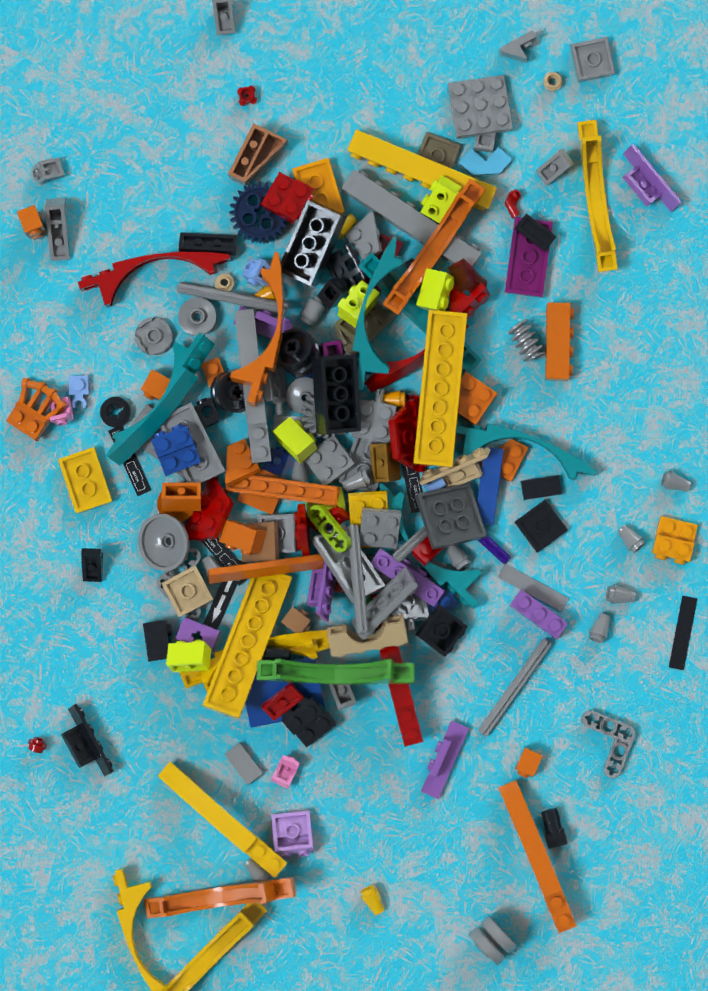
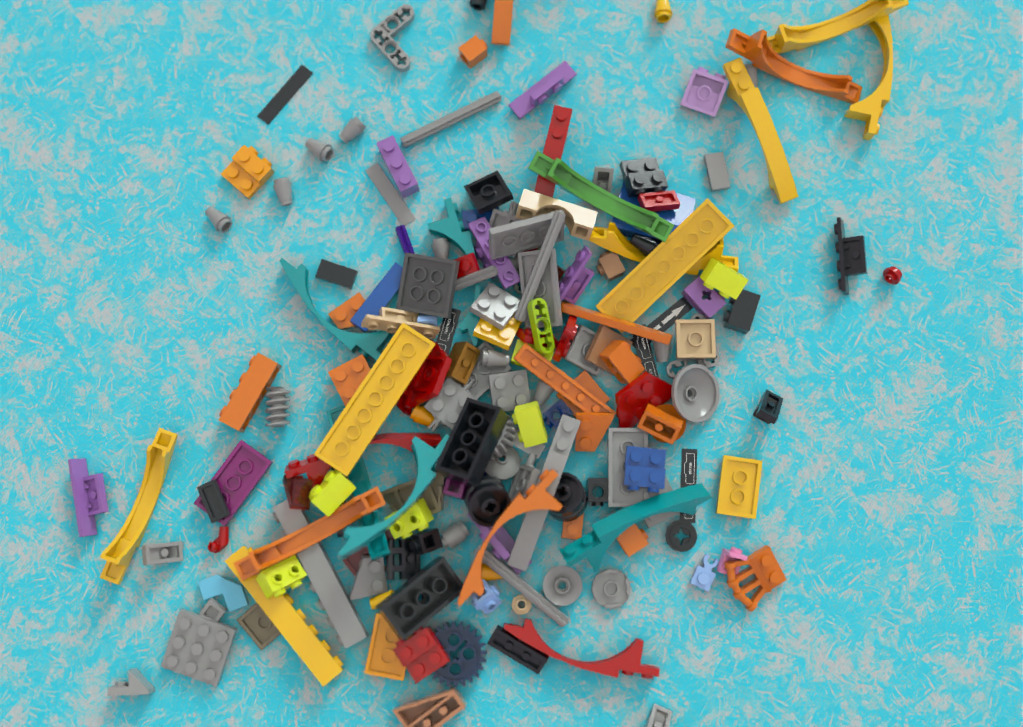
camera: 155 degrees left, 5 degrees down
(285, 771) = (684, 145): bright pink bracket -> none
(540, 526) = (355, 242): black tile -> none
(552, 75) = (115, 633): tan plate -> none
(592, 59) = (72, 637): light grey plate -> none

